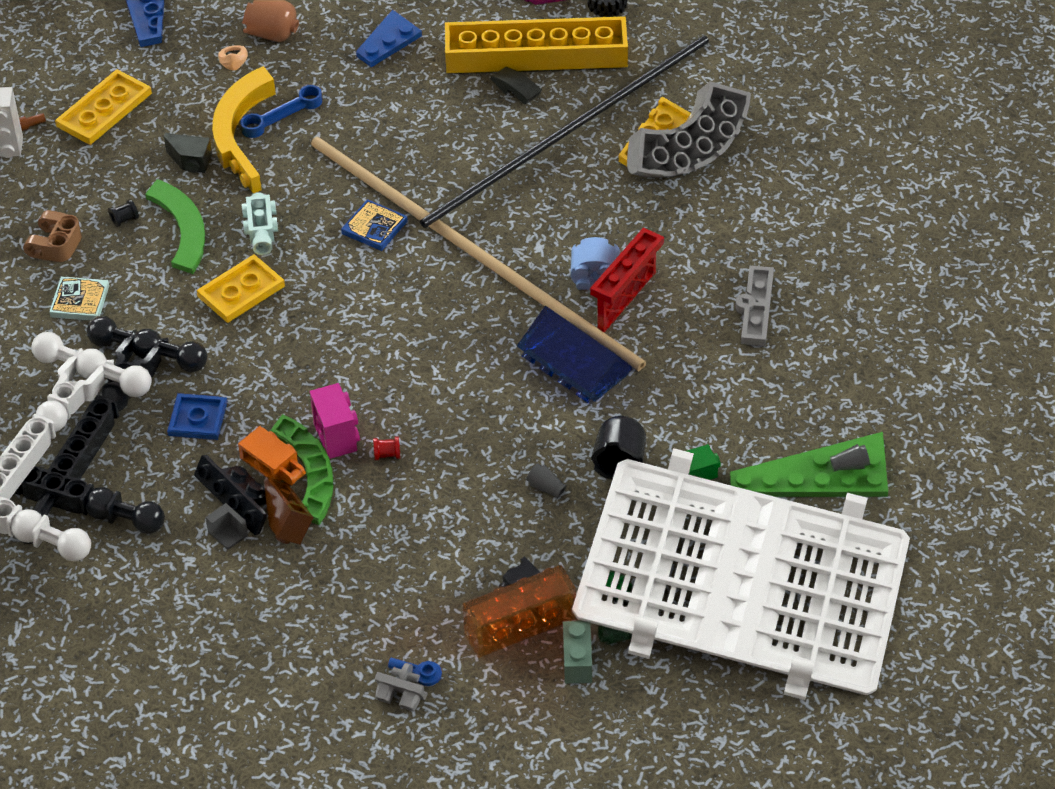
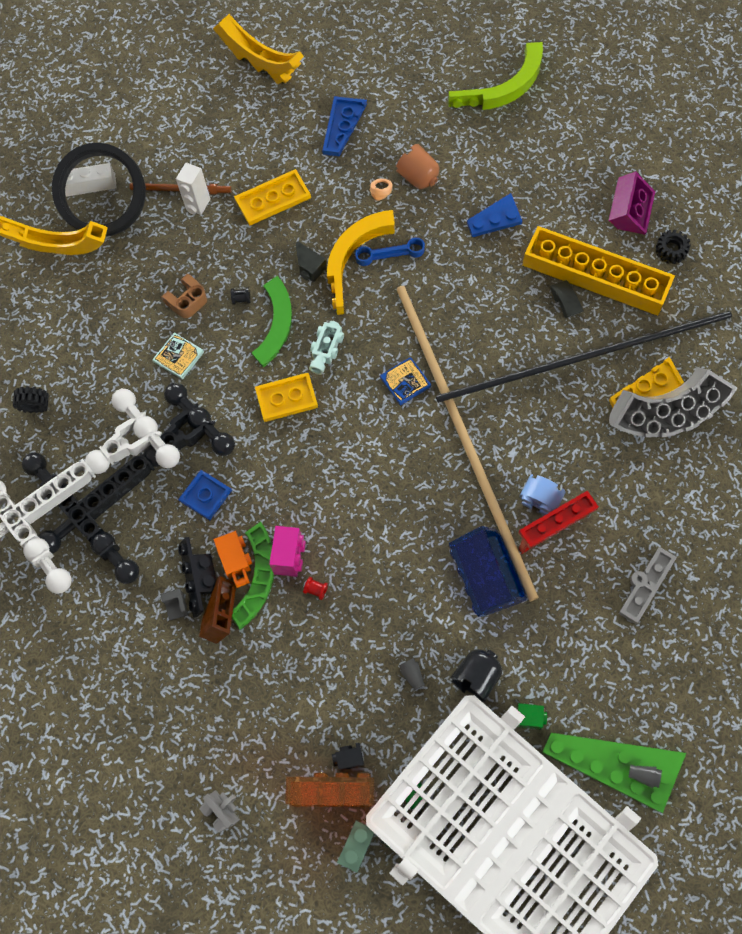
camera: 30 degrees right, 20 degrees up
(429, 671) = (246, 803): blue plate -> none

